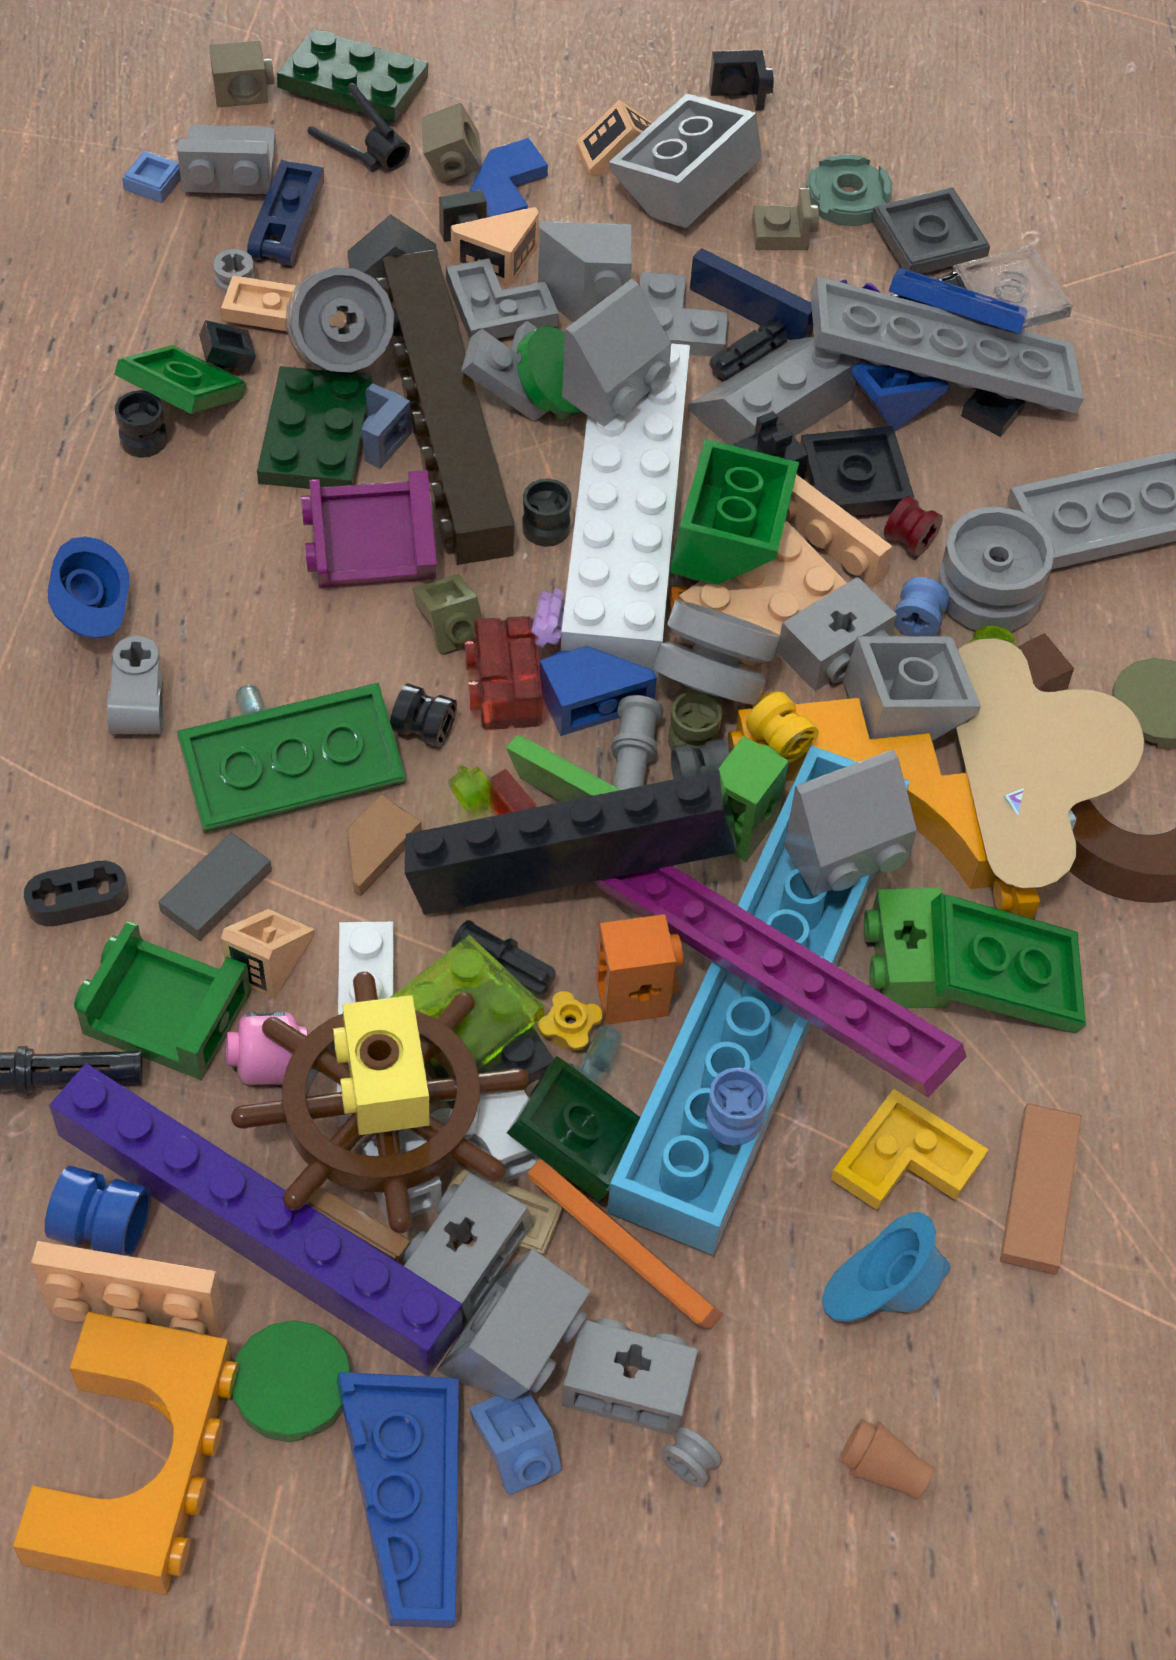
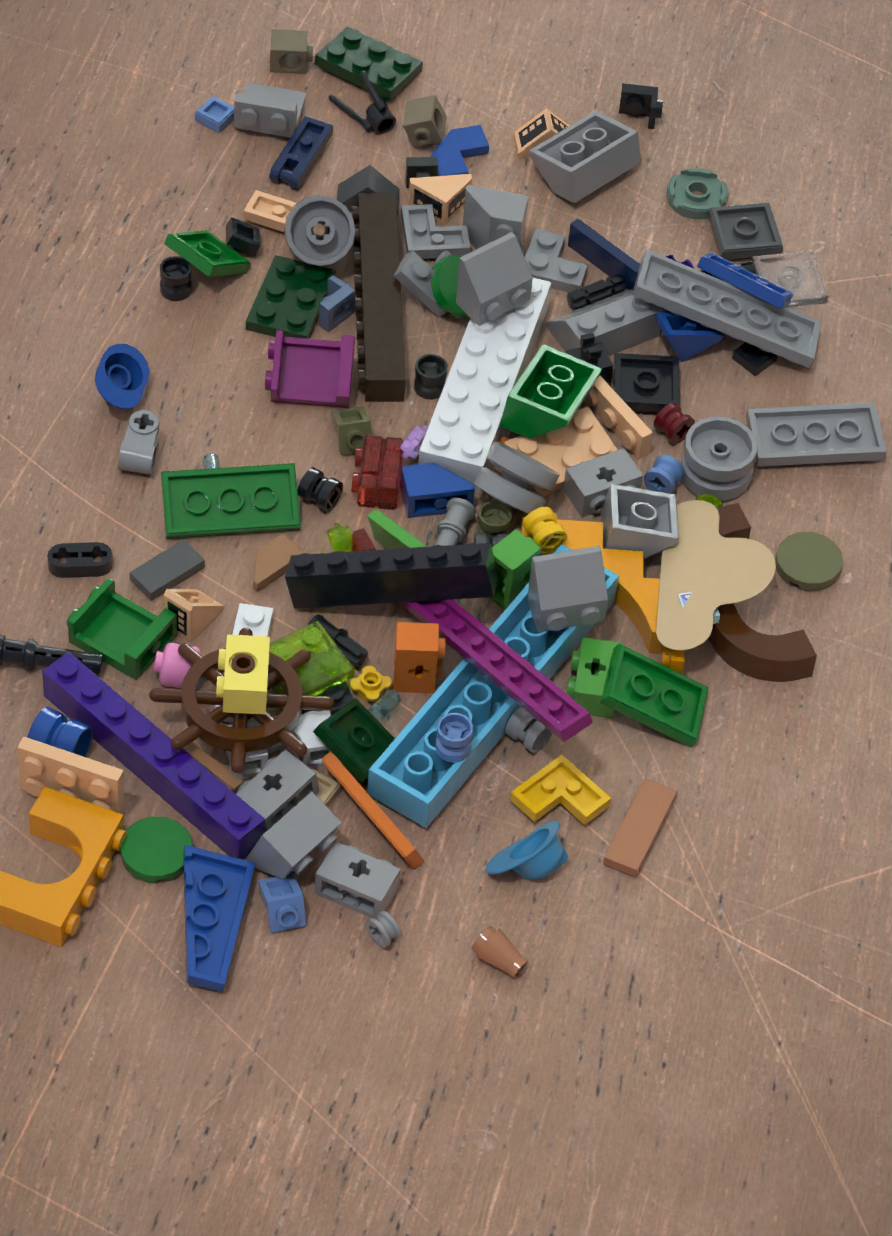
camera: 10 degrees right, 5 degrees down
(231, 261) = (257, 179): light grey bush -> none
(785, 225) = (644, 212): dark tan bracket -> none
(818, 1053) = (528, 730): none -> light grey wheel

